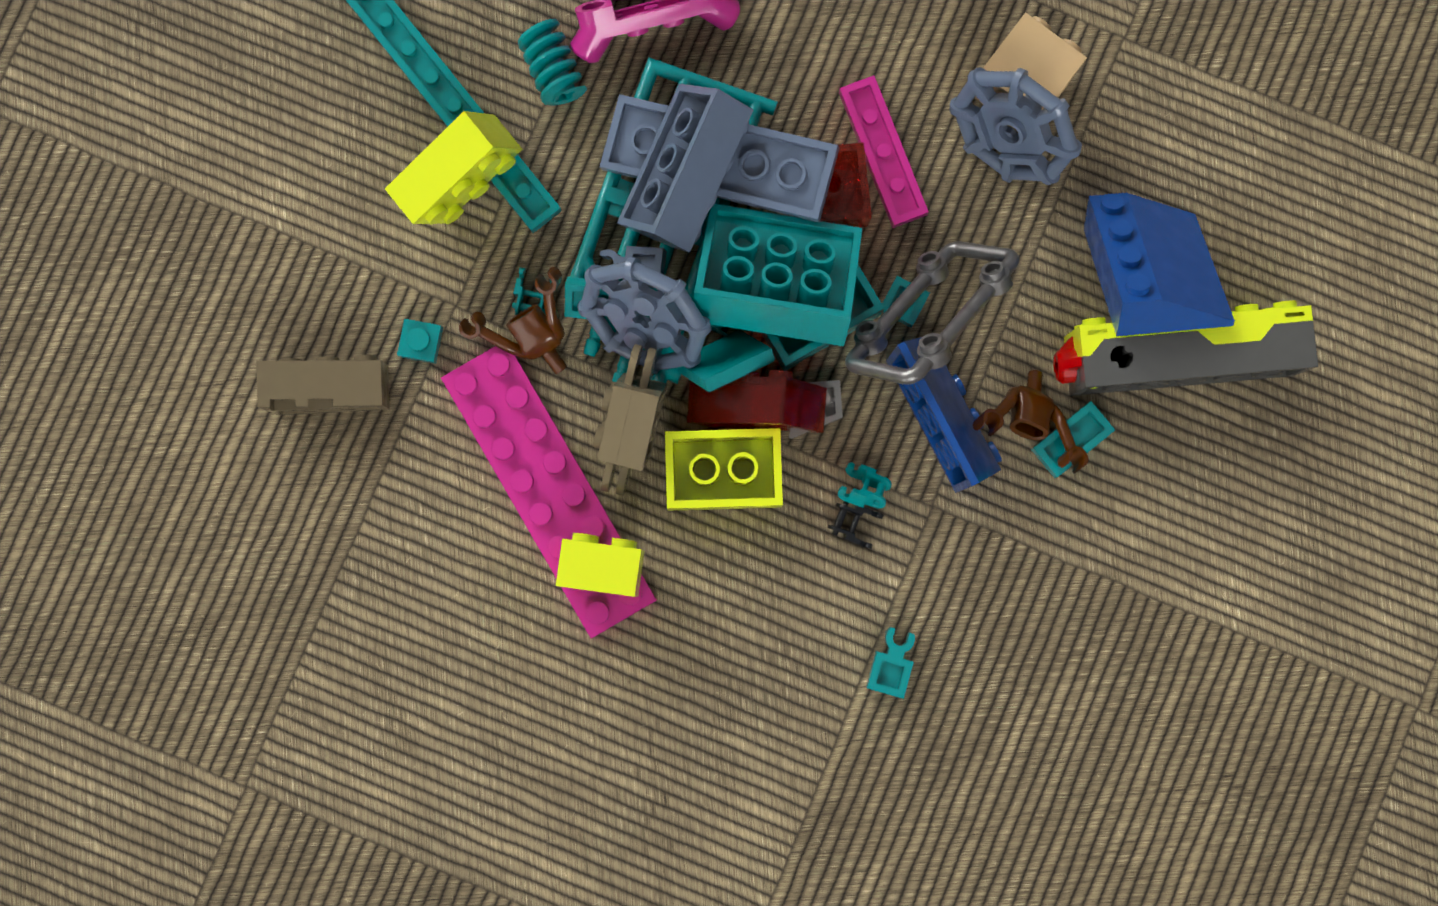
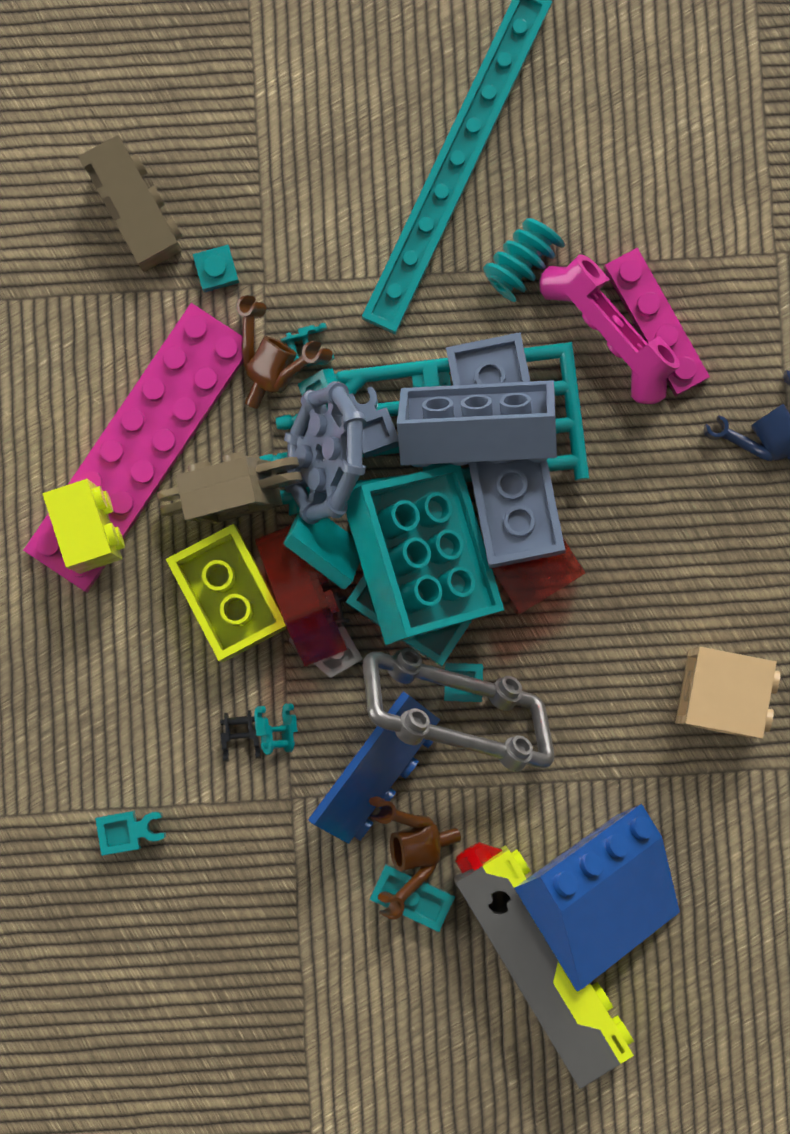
camera: 70 degrees right, 0 degrees up
(454, 169) = (377, 220): neon yellow brick -> none
(883, 151) = (592, 596): dark pink plate -> none
(988, 127) = (668, 703): sand blue plate -> none

